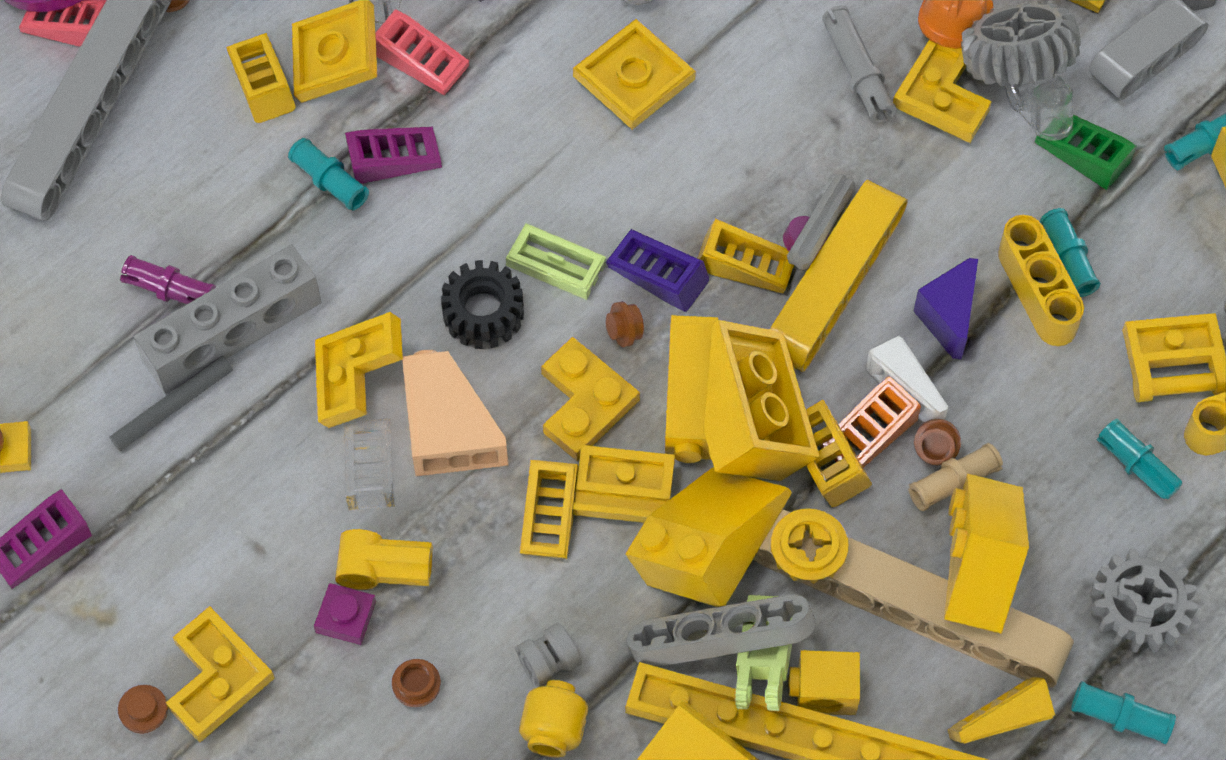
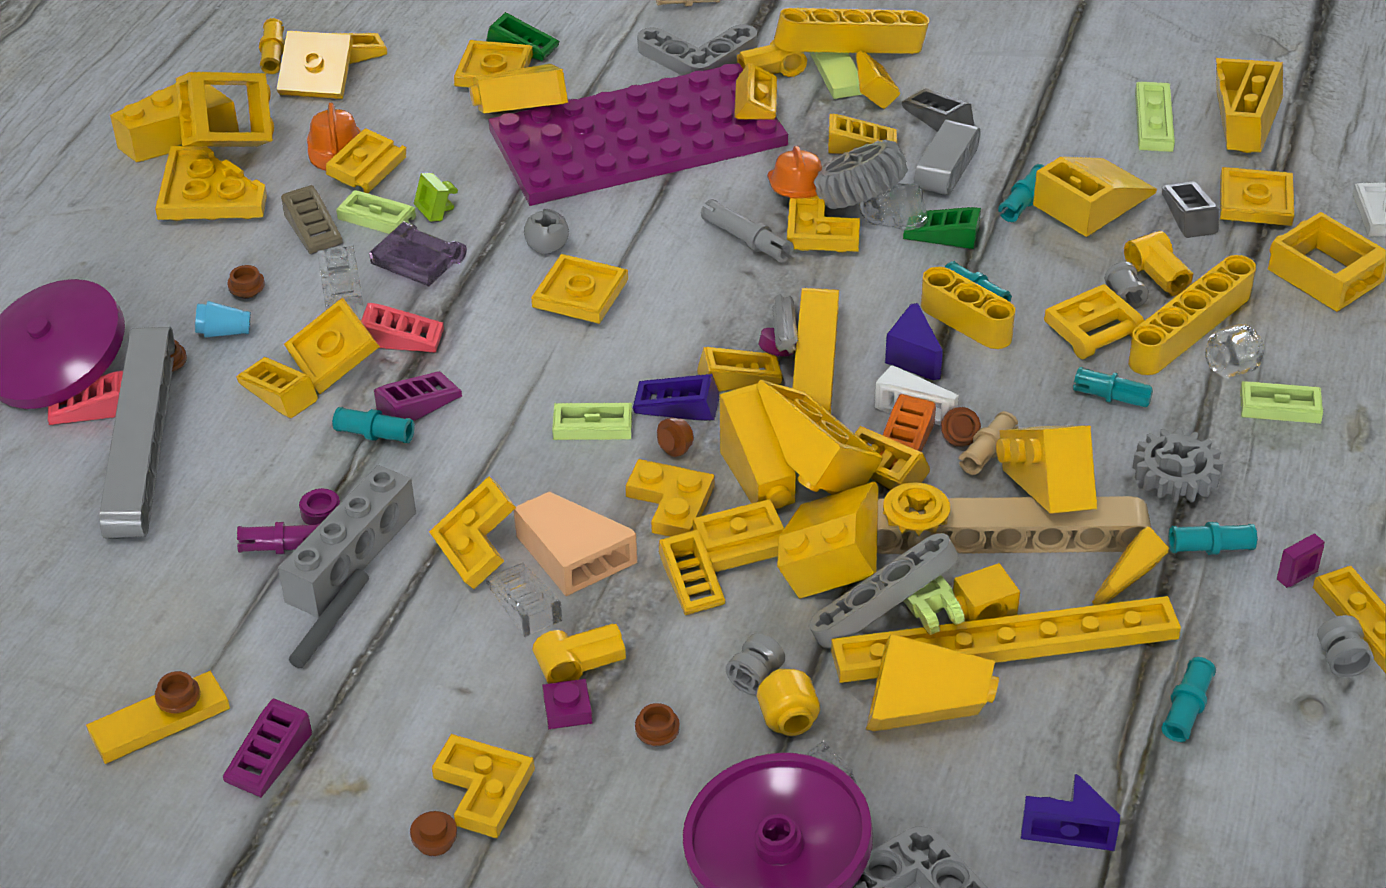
camera: 25 degrees left, 20 degrees down
(228, 256) = (317, 505): none -> magenta tile
(479, 281) = (549, 448): black tyre -> none

